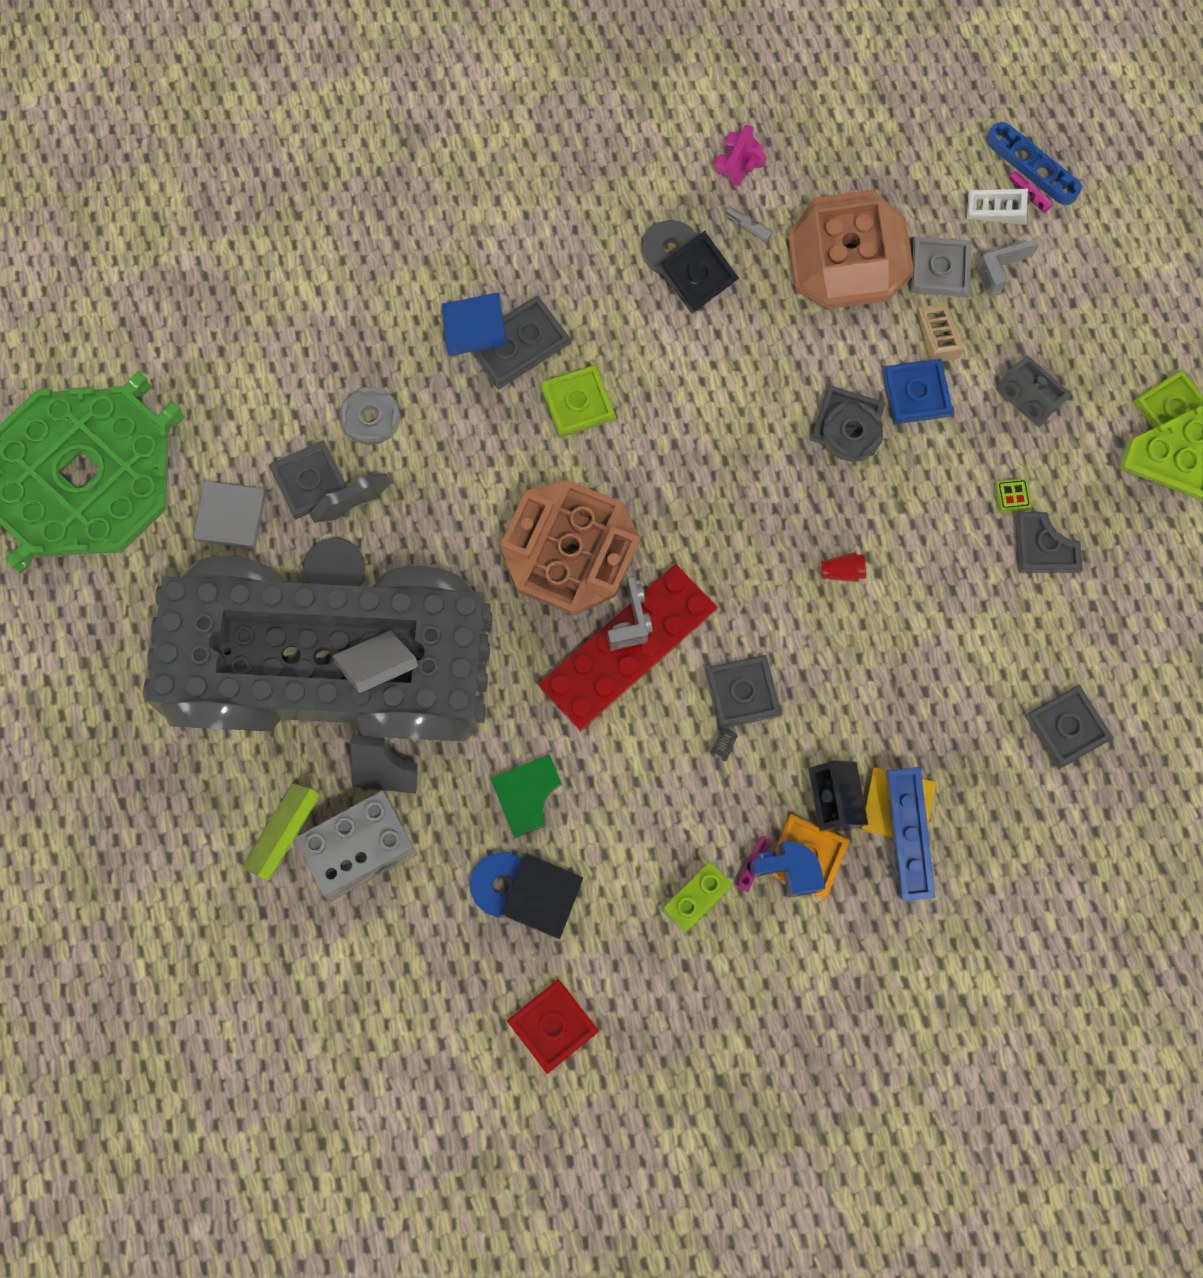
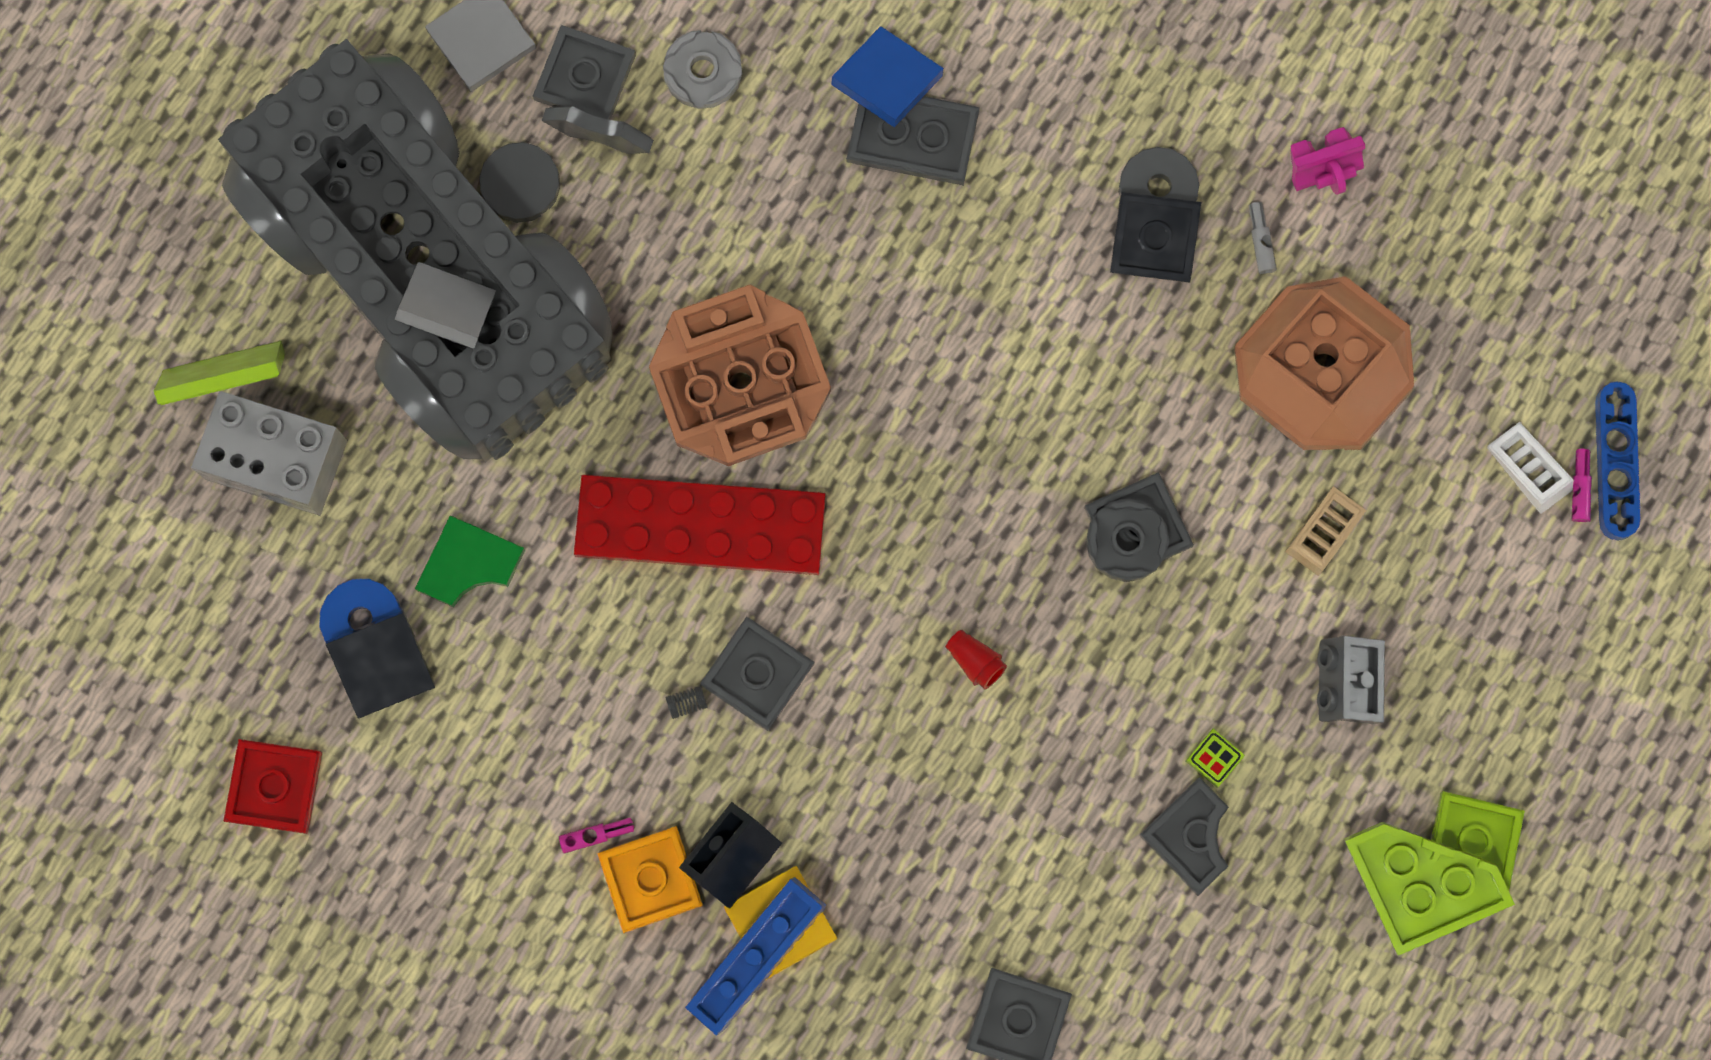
camera: 50 degrees right, 5 degrees up
(379, 768) = (361, 404): dark grey tile -> none
(577, 401) = (906, 247): lime tile -> none
(624, 634) = (700, 509): light grey bracket -> none
(697, 898) = (509, 810): lime brick -> none
(800, 868) = (626, 876): blue brick -> none
(917, 391) = (1239, 566): blue tile -> none
(941, 266) = (1403, 469): light grey tile -> none
(992, 261) = (1442, 531): light grey bracket -> none

